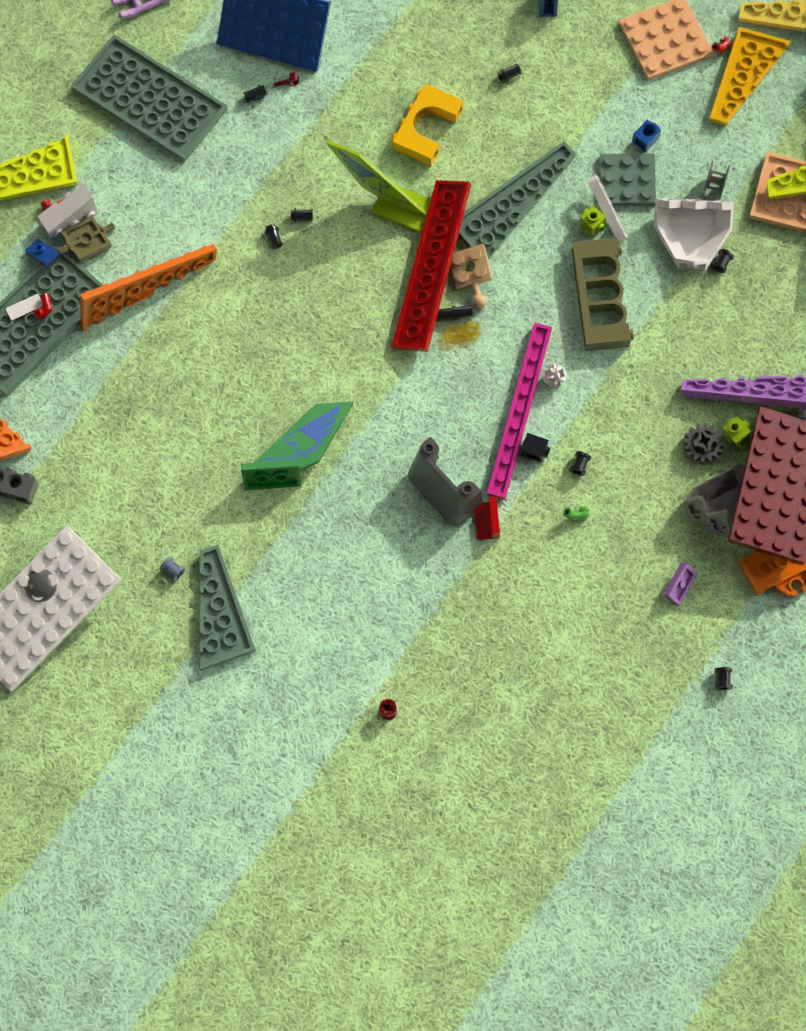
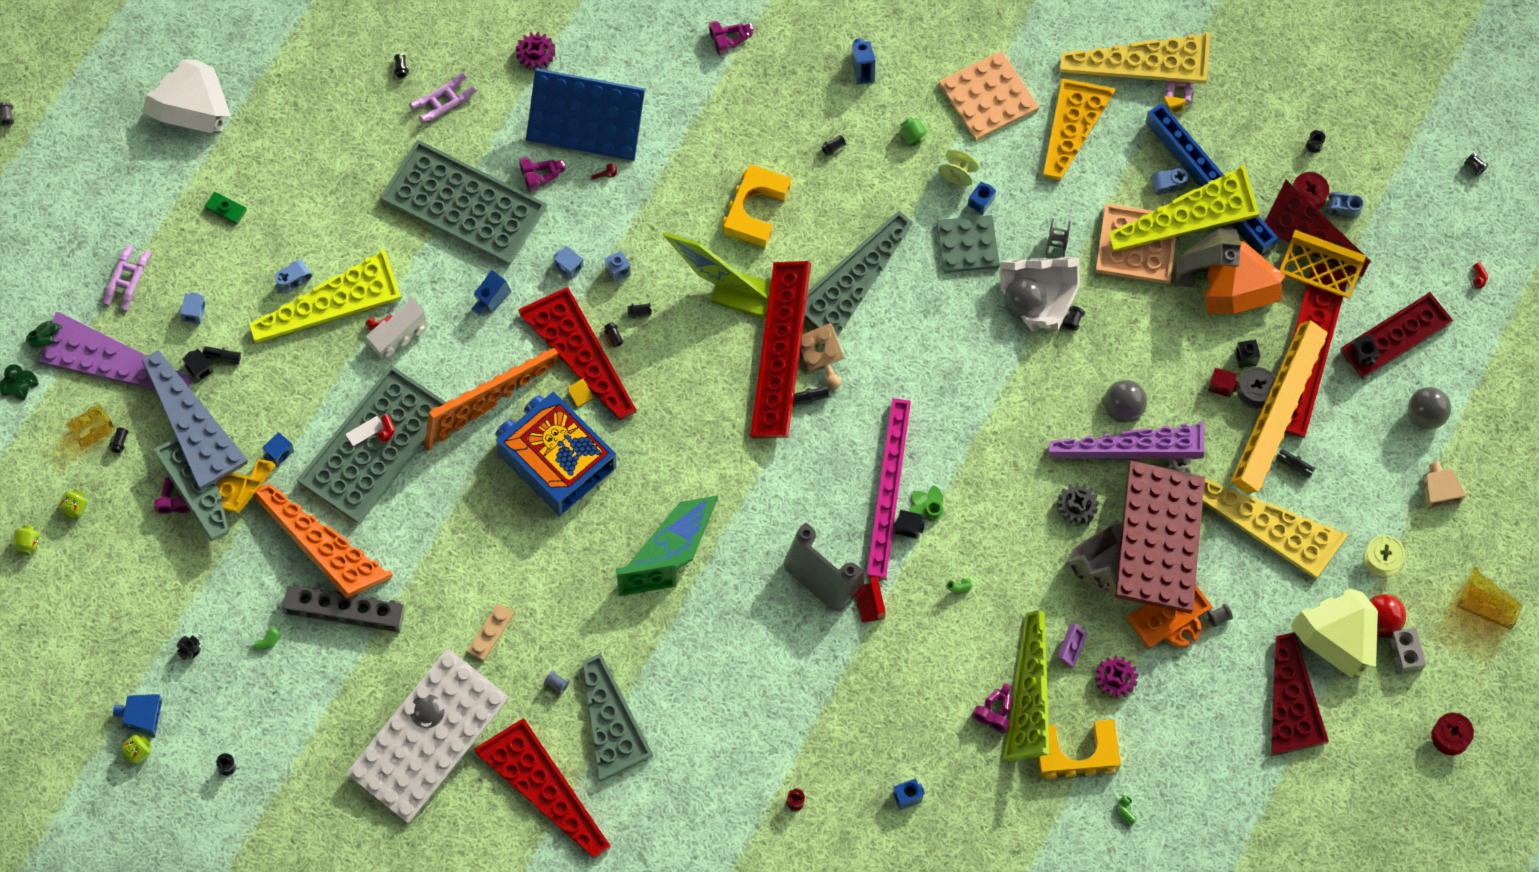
camera: 15 degrees left, 5 degrees down
(41, 252) = (375, 373): blue plate -> none
(86, 239) = (419, 355): olive plate -> none
(116, 513) = (490, 632): none -> tan plate
(134, 651) = (528, 768): none -> red wing
(161, 186) = (490, 293): none -> blue torso
(200, 344) = (555, 452): none -> brick
(216, 80) = (531, 178): none -> magenta piece
(230, 230) = (565, 329): none -> red wing
(234, 290) = (580, 393): none -> yellow slope
(240, 163) = (568, 262): none -> medium blue brick
(255, 93) = (574, 188): black pin -> none
(286, 171) = (617, 266): none -> medium blue brick
(462, 333) = (821, 416): clear yellow plate -> none
(493, 721) = (904, 801): none -> blue brick
(553, 427) = (925, 502): none -> bright green plate
(554, 375) = (919, 450): white gear -> none
(580, 463) = (956, 535): black bush -> none
(587, 65) = (913, 131): none -> bright green head
(592, 221) = (938, 290): lime brick -> none
(595, 651) = (986, 716): none -> magenta piece
(602, 336) = (964, 405): olive fence -> none
(607, 208) = (952, 275): white beam -> none
(627, 104) = (959, 166): none -> yellowish green piece
(628, 649) = (1028, 718): none -> lime wing
(648, 700) = (1105, 758): none -> yellow arch
(677, 237) = (1025, 298): none -> dark grey piece
(712, 754) = (1124, 809): none -> bright green arm
(713, 622) = (1121, 669): none -> magenta gear
(721, 48) = (1048, 99): red arm -> none
(723, 678) = (1126, 734): black bush -> none
(738, 432) = (1111, 489): lime brick -> none
(763, 346) = (1125, 401): none -> dark grey piece

